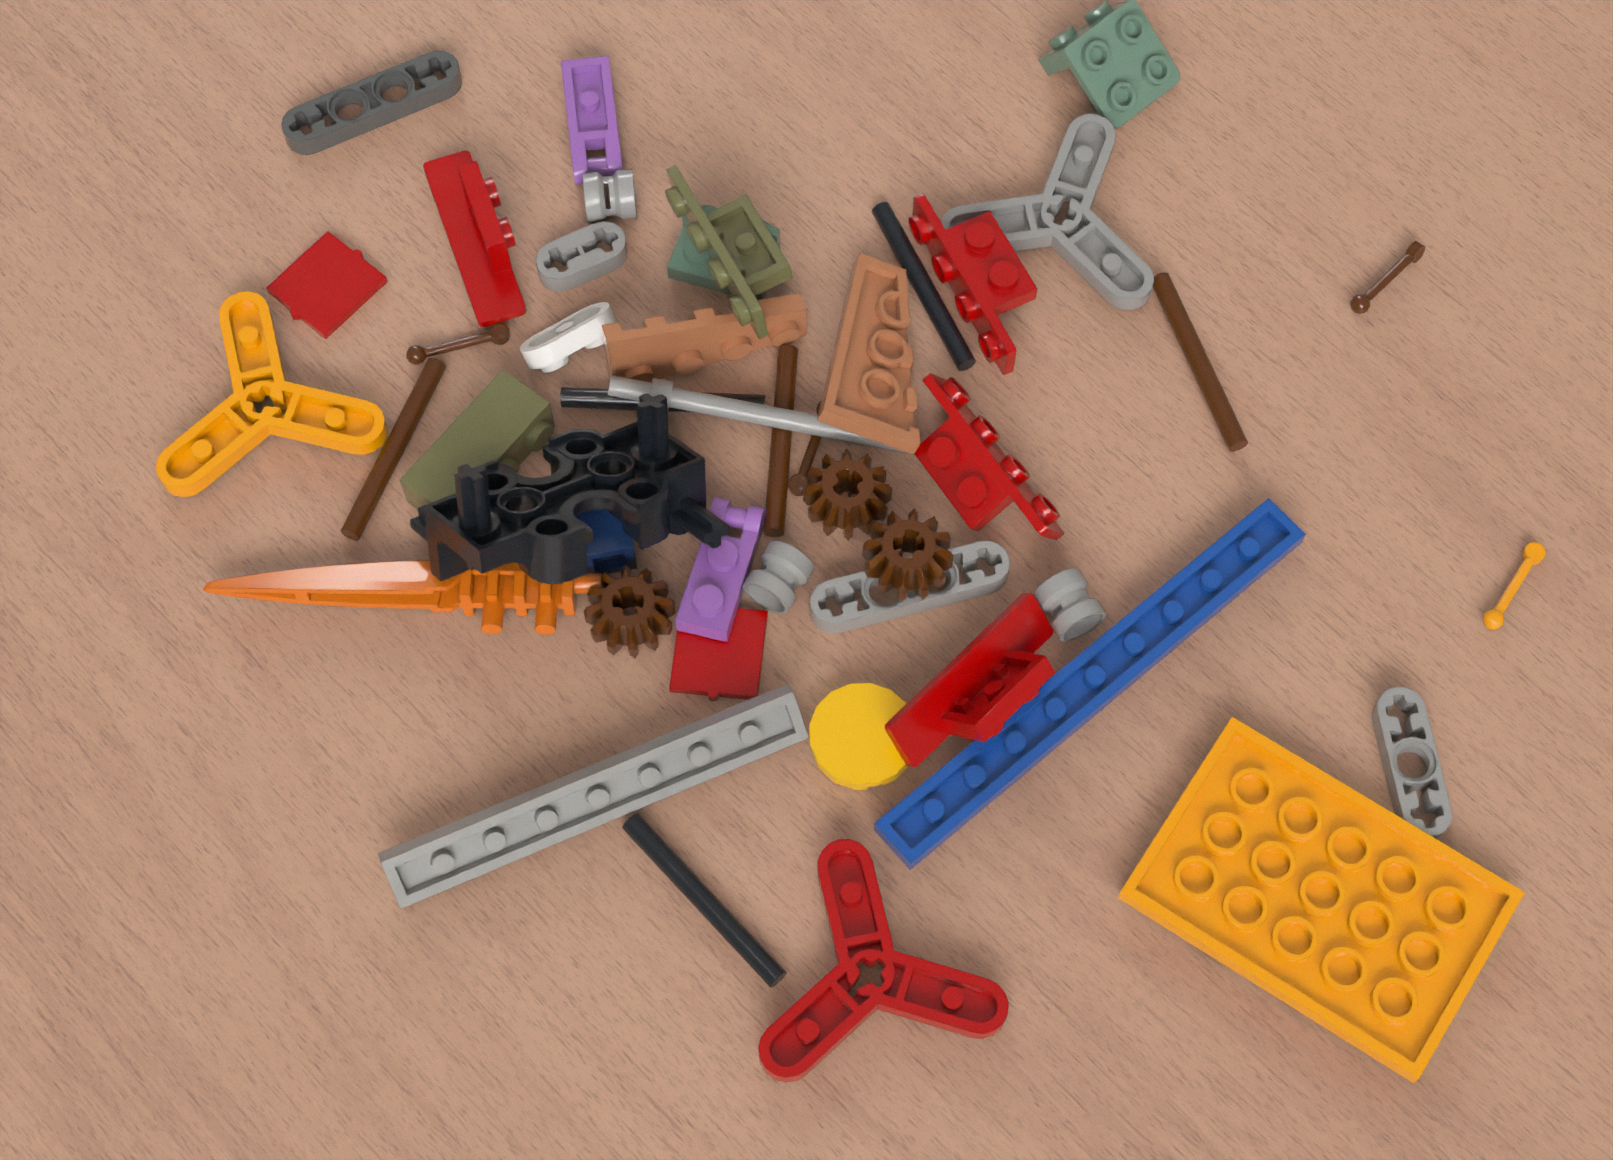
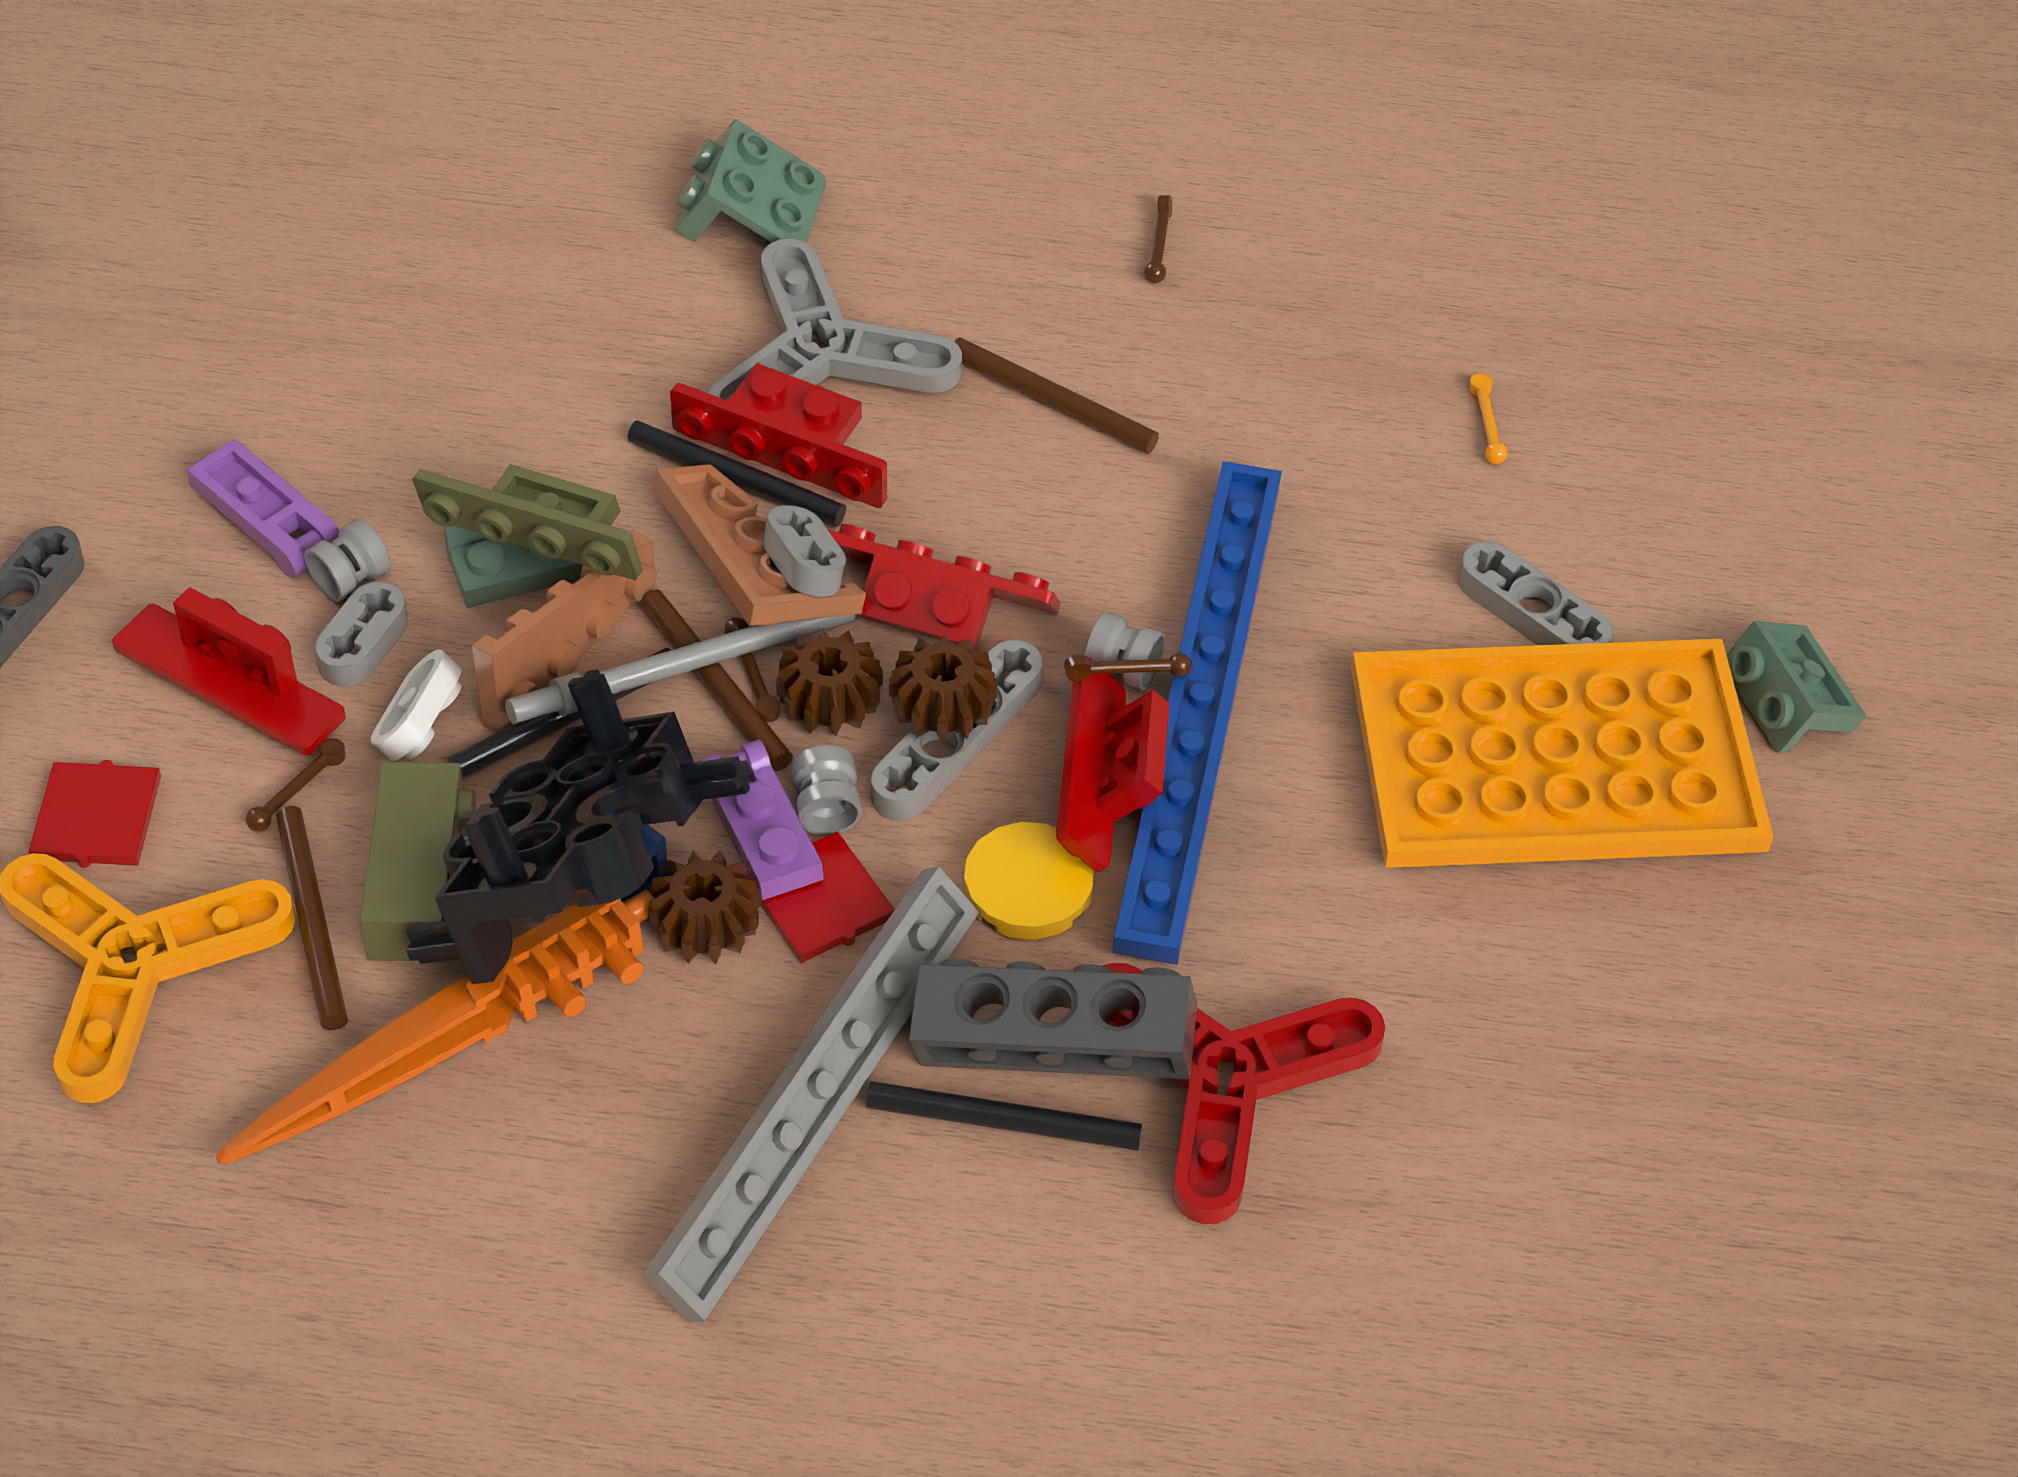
camera: 40 degrees left, 15 degrees down
(831, 924) = (1082, 1043): none -> dark grey brick
(907, 388) = (804, 551): none -> light grey beam
(1013, 603) = (1079, 668): none -> reddish brown hinge
(1551, 964) = (1790, 684): none -> sand green bracket

